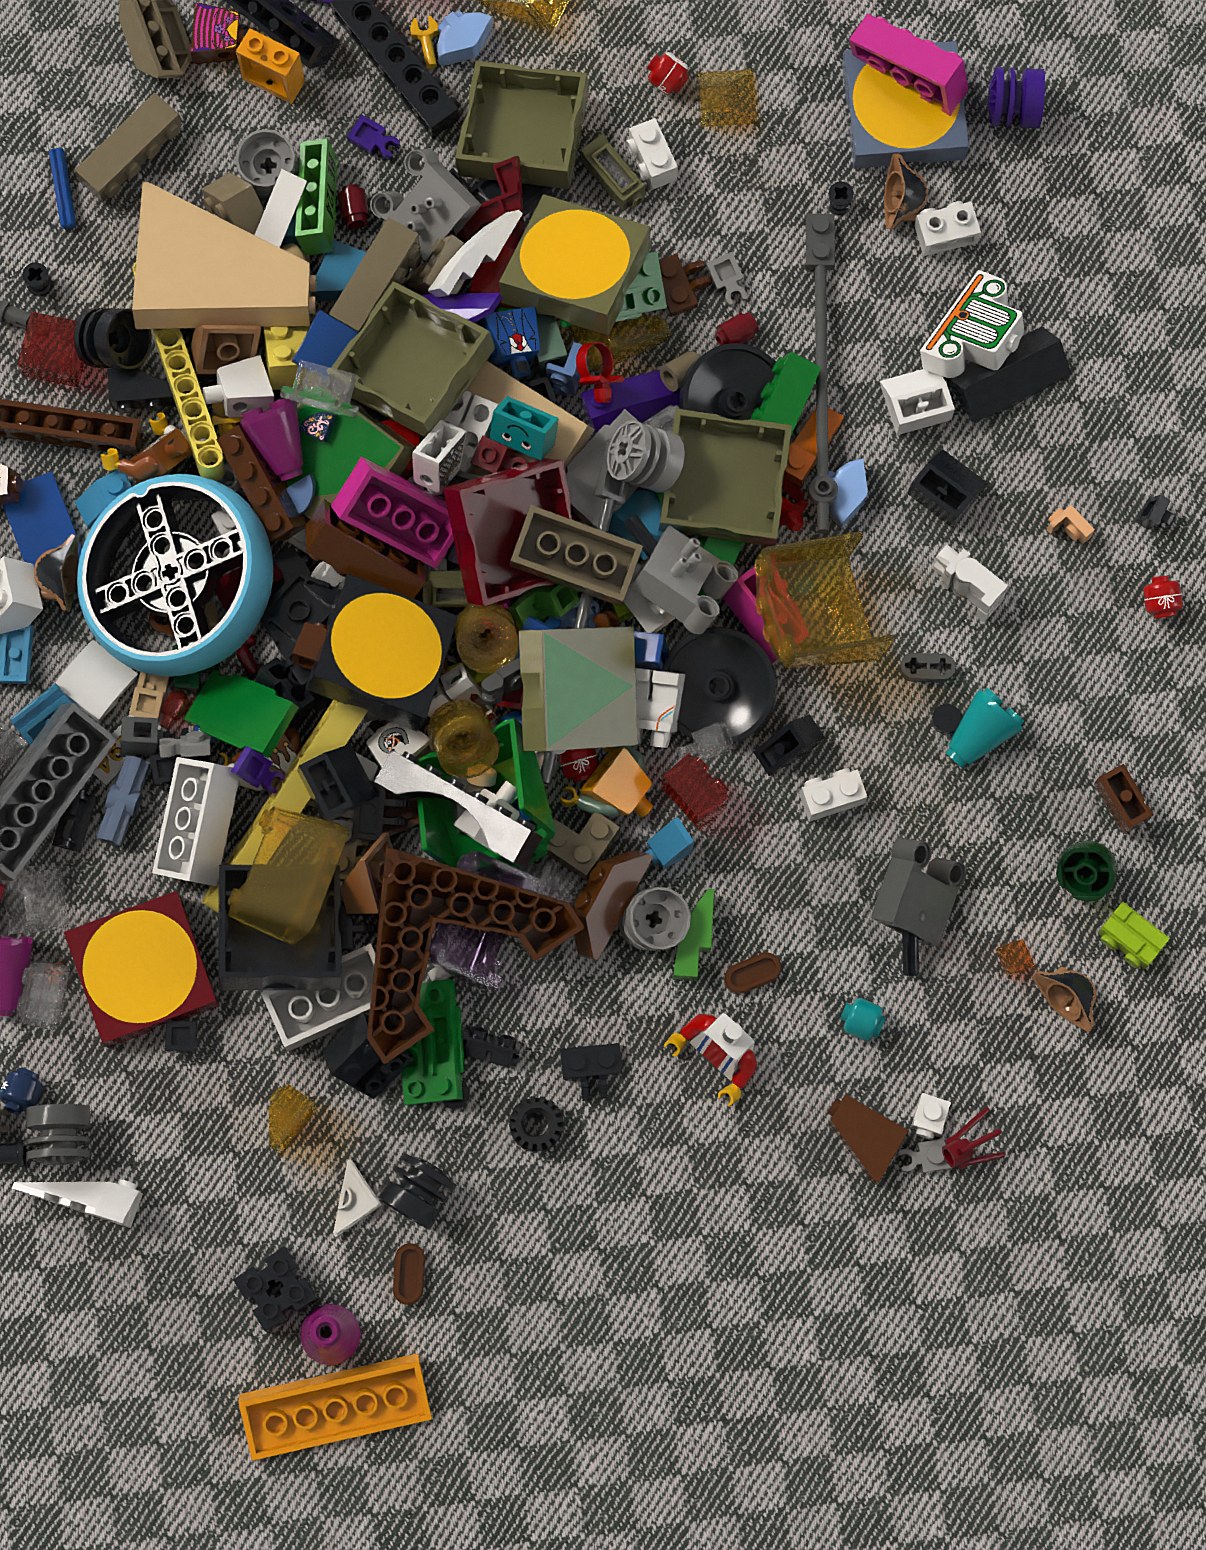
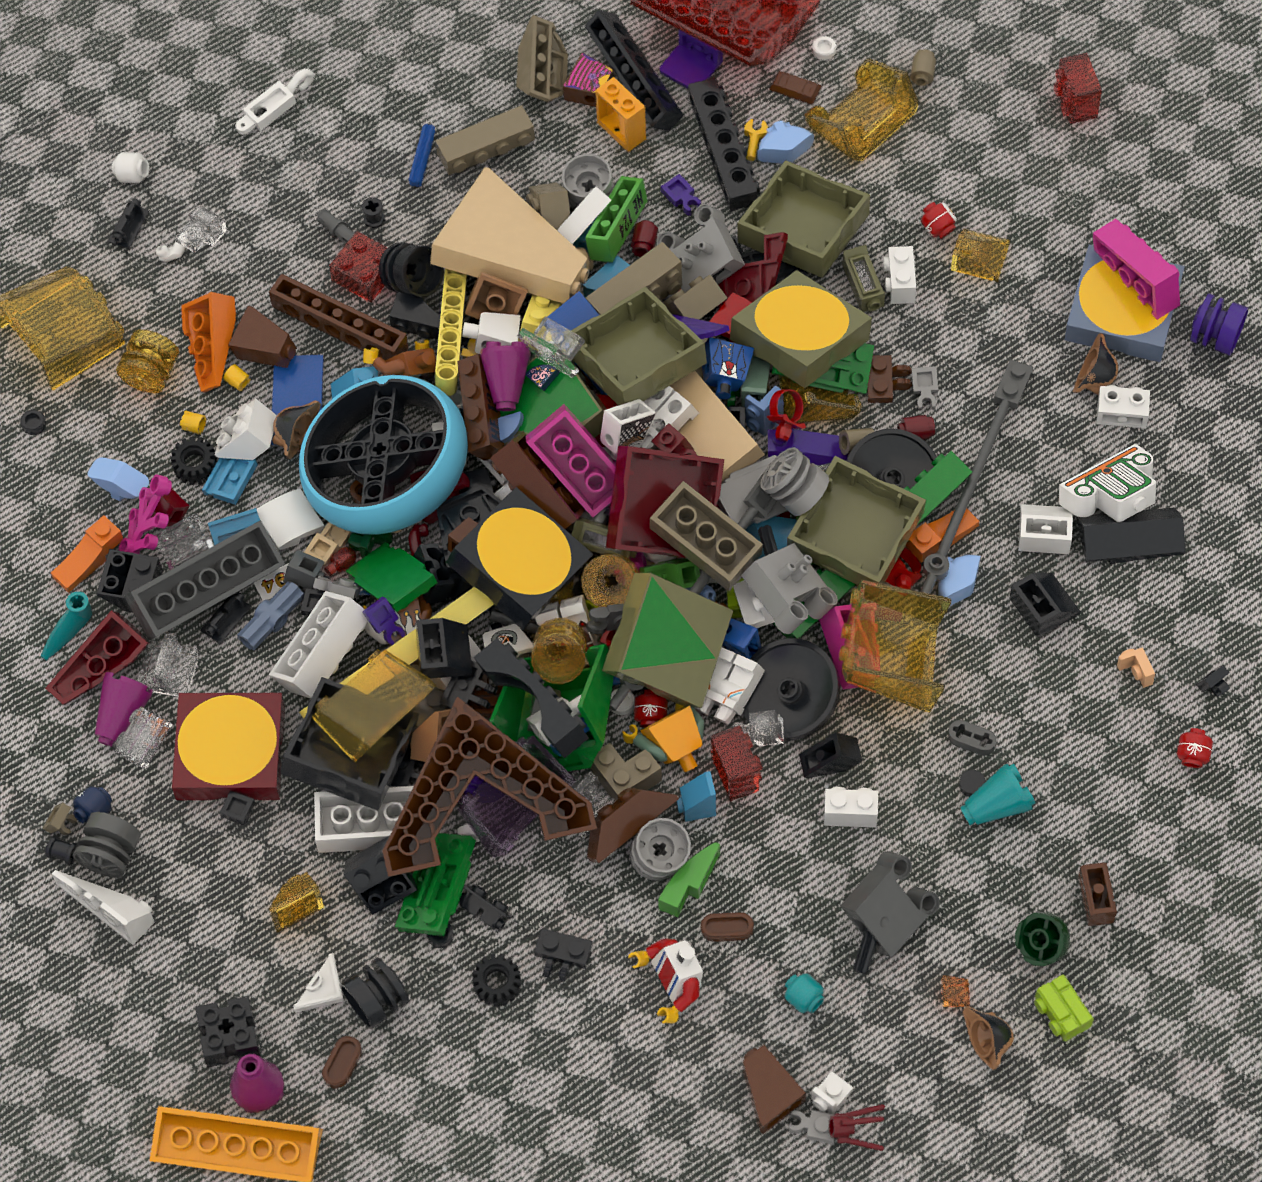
camera: 25 degrees right, 15 degrees down
(479, 249) = (728, 291): white slope -> none
(486, 779) = (565, 691): white tile -> none
(524, 428) = (704, 428): teal brick -> none
(839, 190) = (1042, 356): black bush -> none
(970, 580) = (1034, 679): white hips -> none

